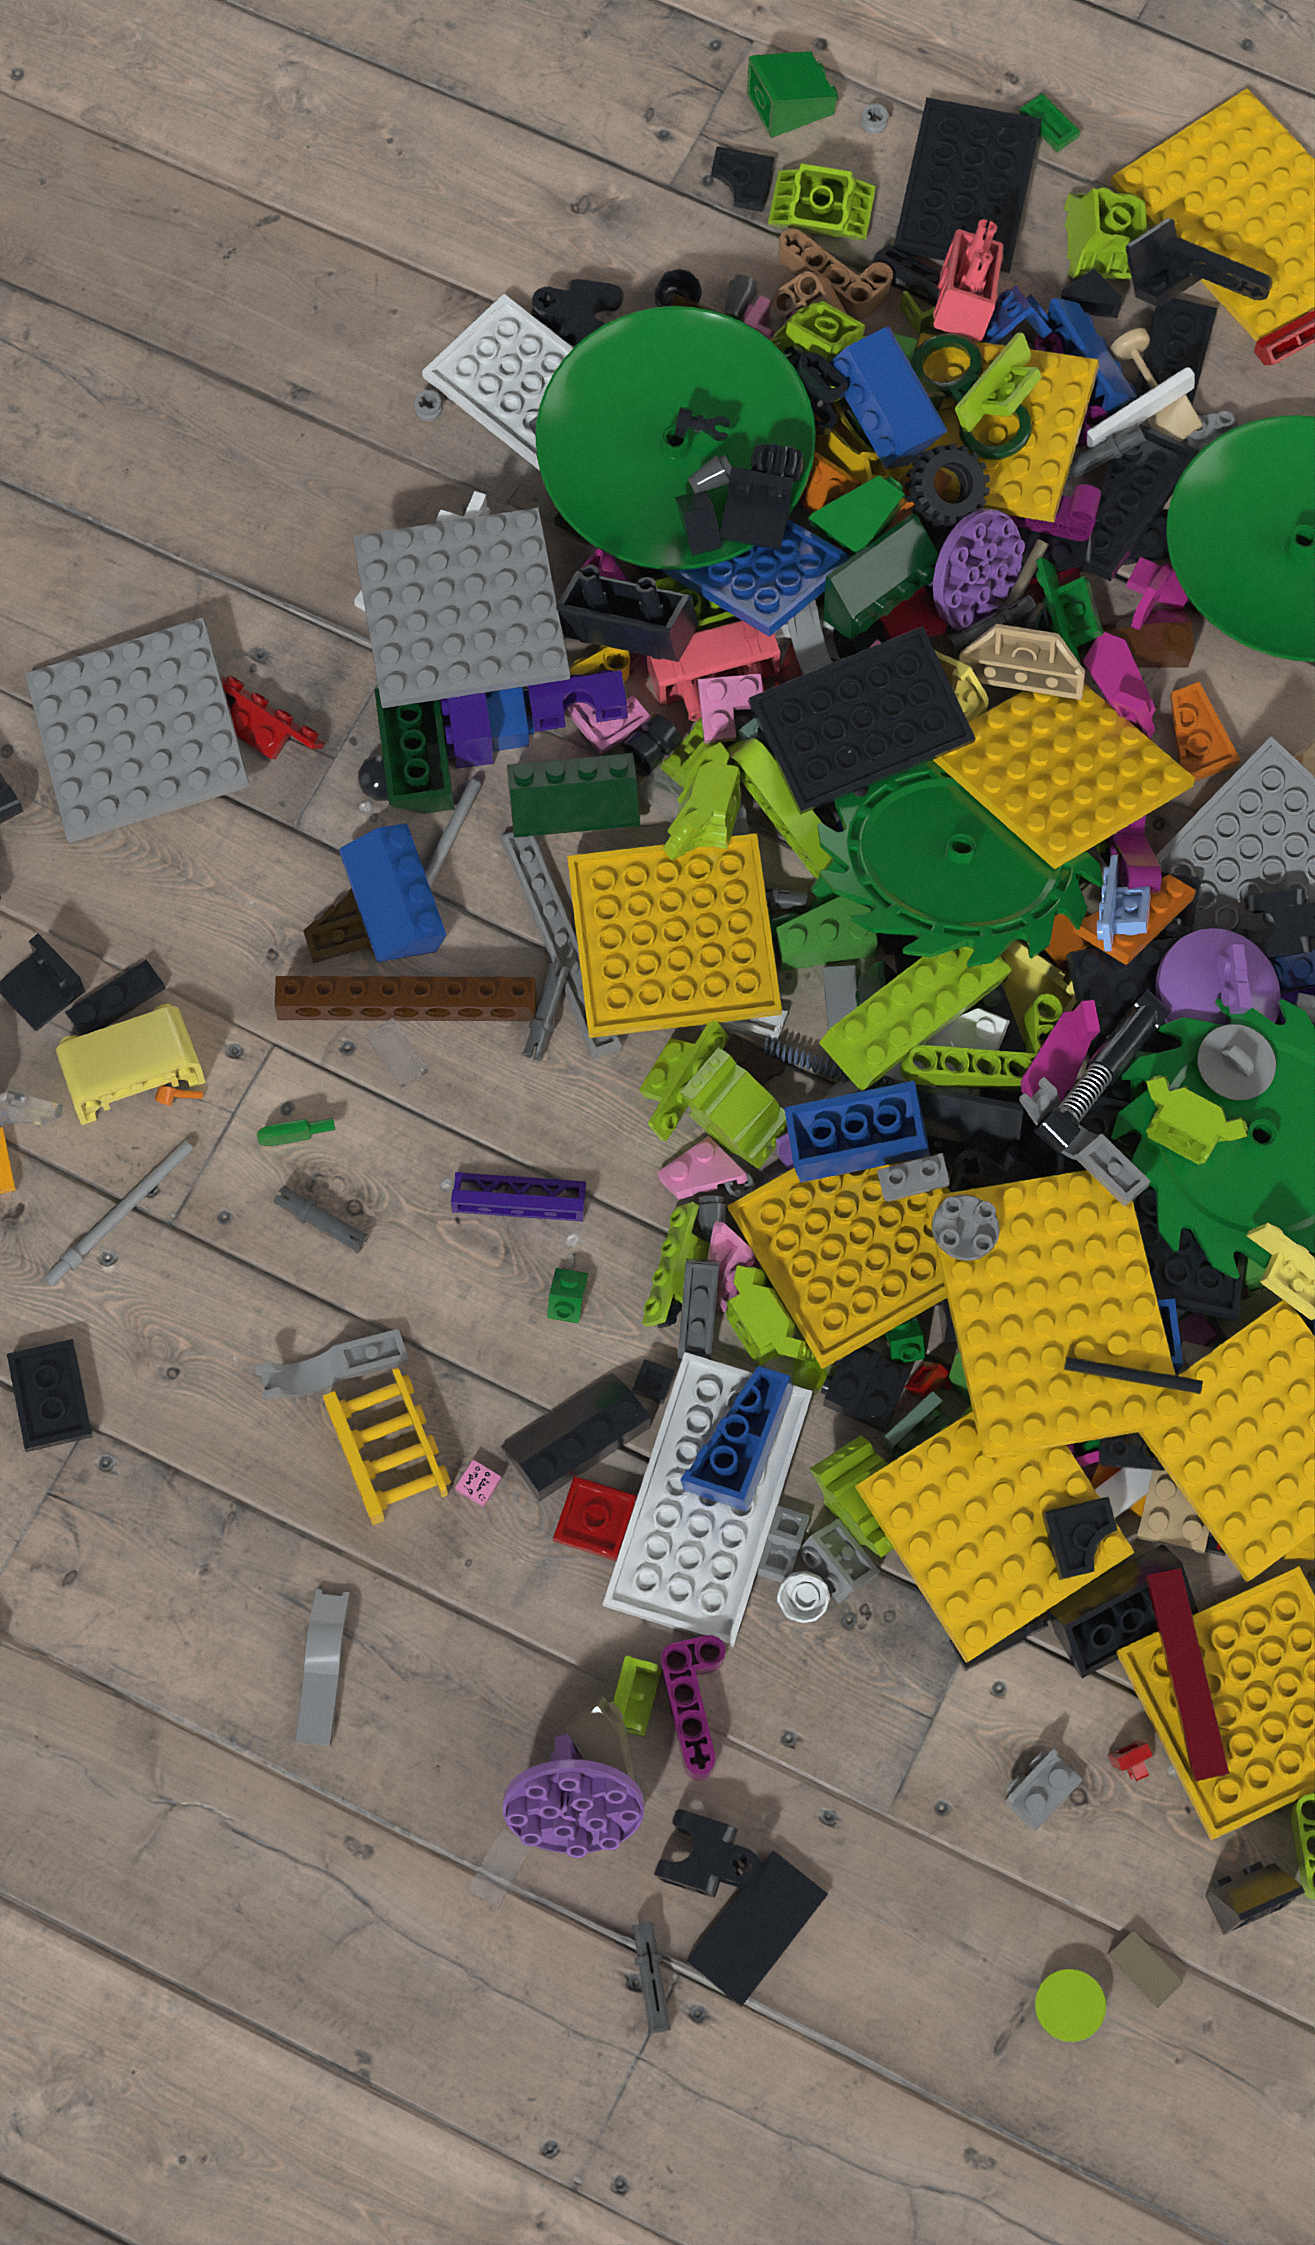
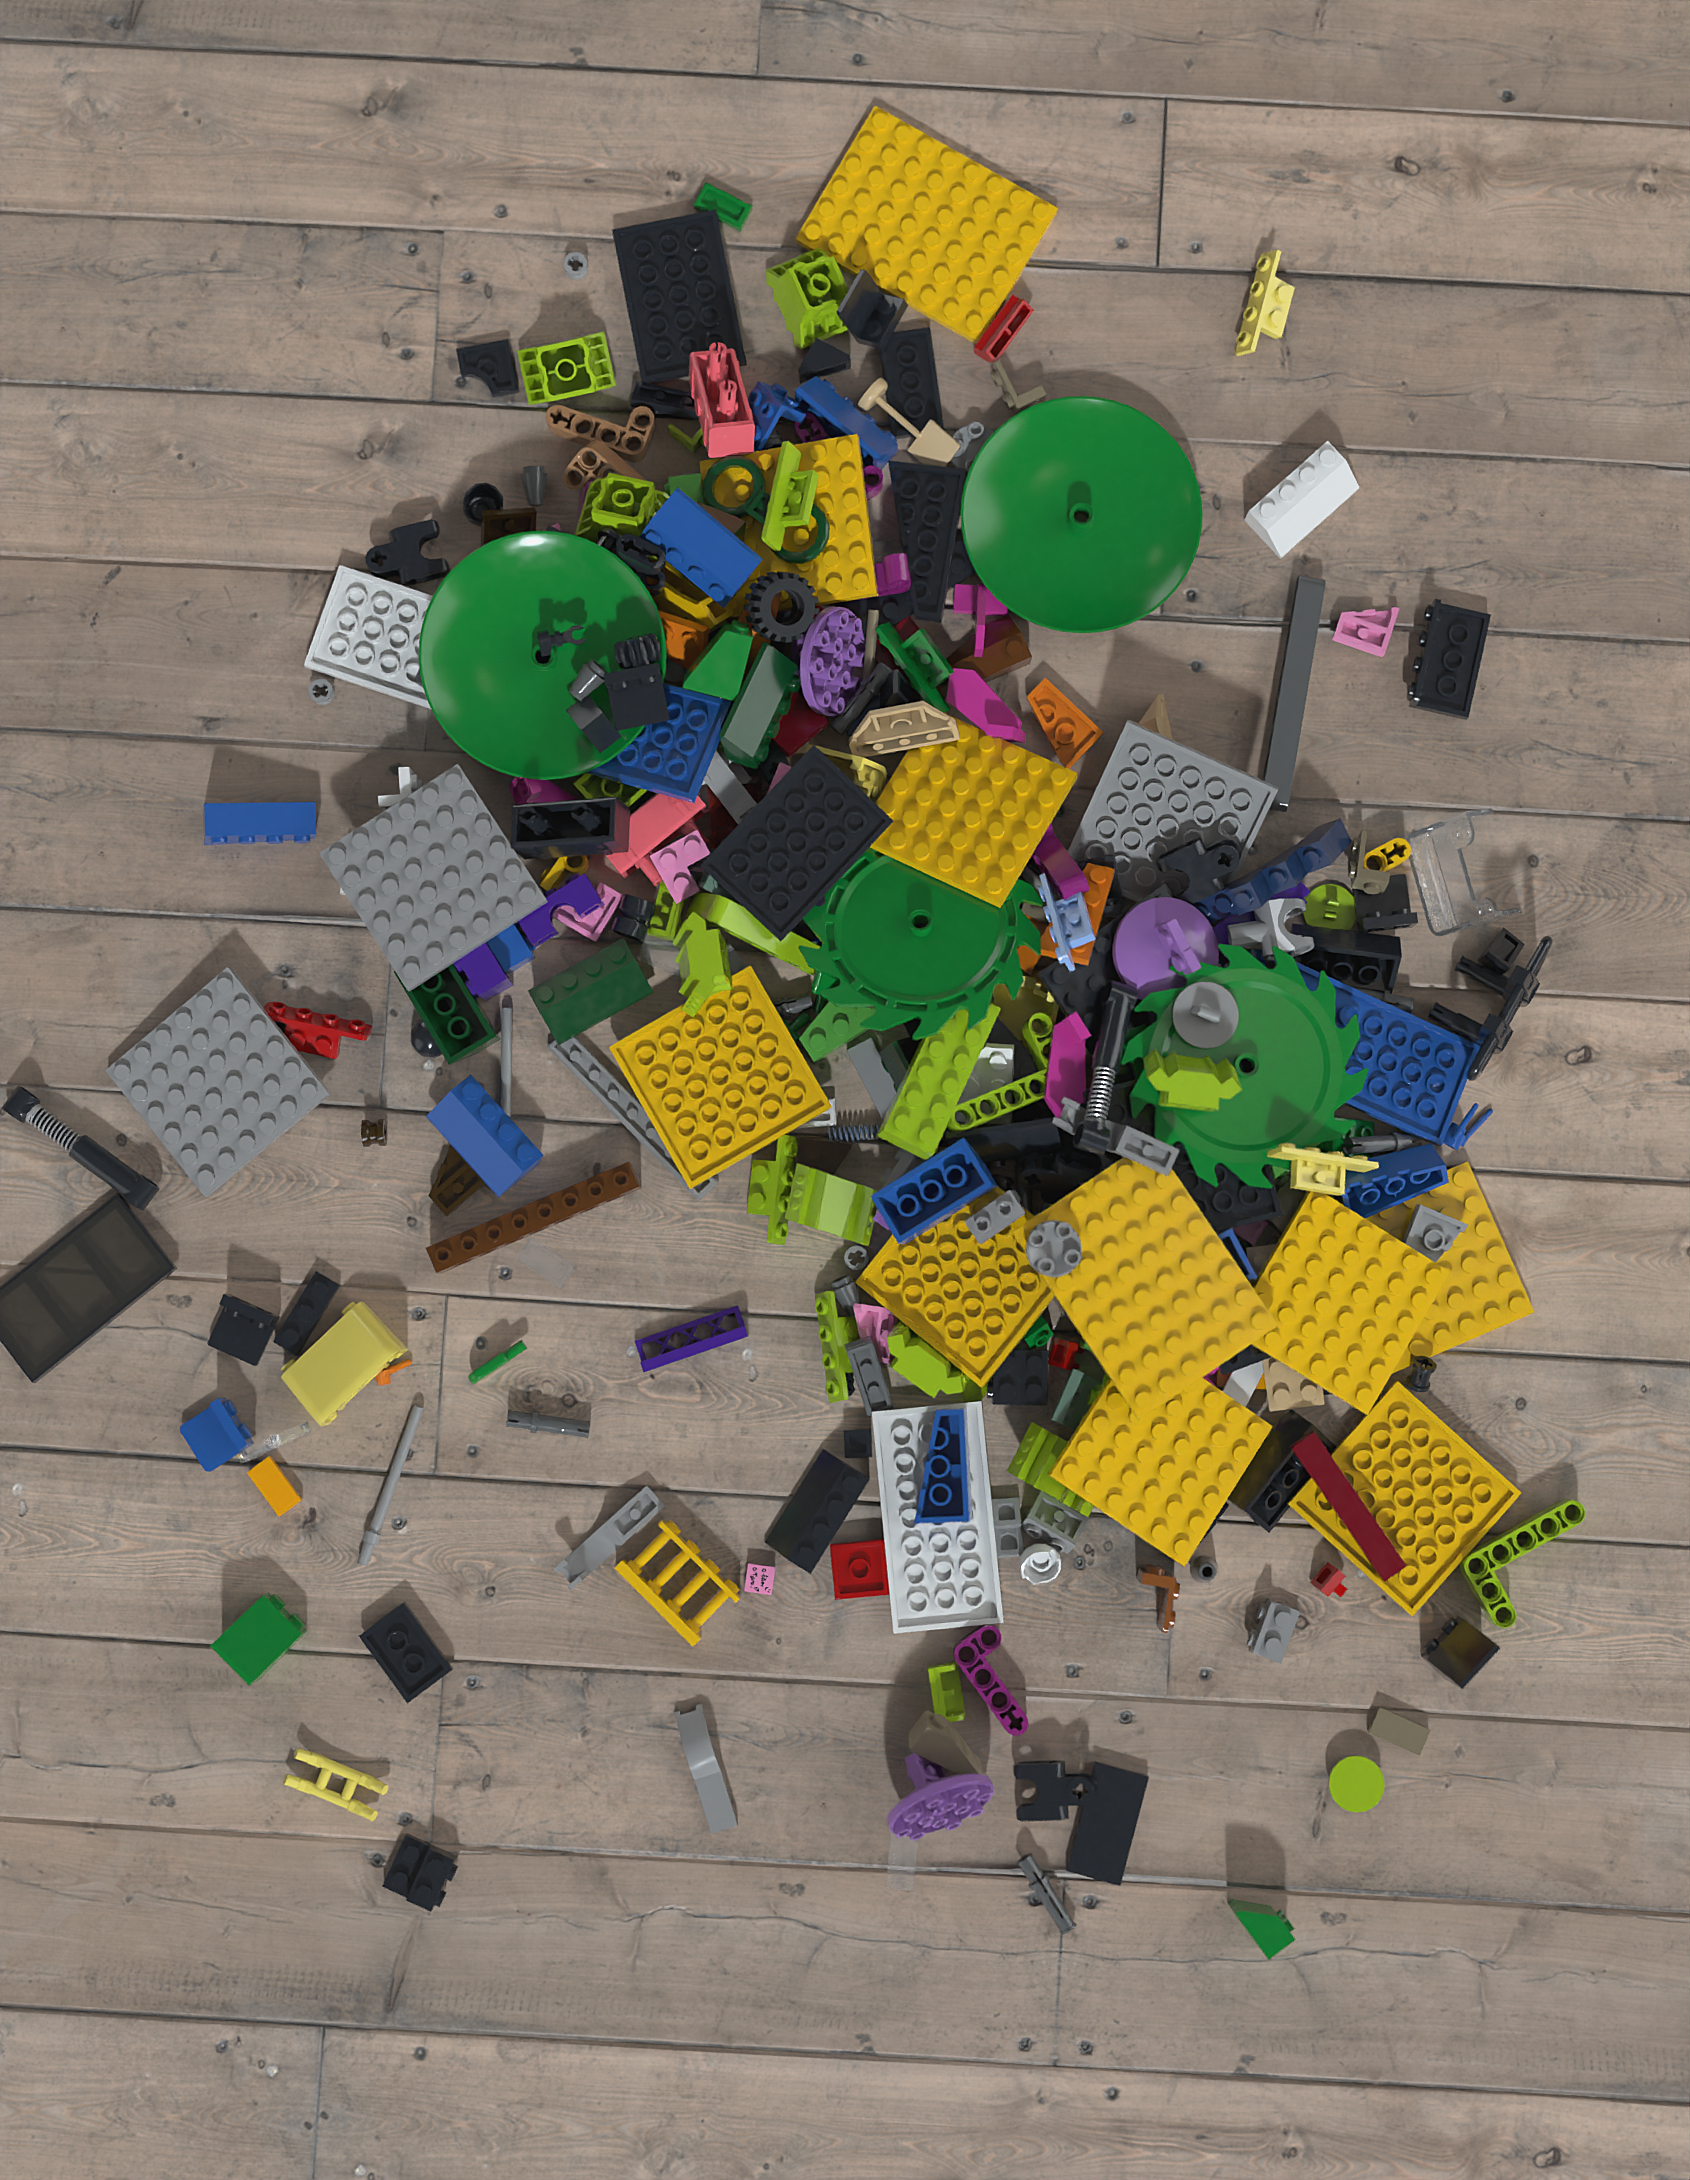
camera: 20 degrees left, 15 degrees up
(275, 845) = (374, 1132): none -> dark brown wheel
(301, 497) = (258, 822): none -> blue wedge
(542, 1025) = (649, 1192): dark grey pin -> none
(566, 1295) = (762, 1402): green bracket -> none
(700, 1170) = (822, 1259): bright pink wing -> none
(757, 316) = (555, 498): bright pink bracket -> none
(789, 90) = (496, 271): green slope -> none
(892, 2119) = (1267, 1928): none -> green slope
(932, 1664) = (1156, 1576): none -> dark orange bracket
(985, 1691) = (1197, 1566): none -> dark grey cone
(1076, 1534) = (1226, 1436): black tile -> none
(1106, 451) = (896, 499): dark grey pin -> none
(1133, 1375) = (1226, 1310): black bar -> none
(1142, 407) = (906, 456): white tile -> none
(1188, 256) = (917, 297): black beam -> none
(1275, 405) = (1011, 400): none -> dark tan bracket

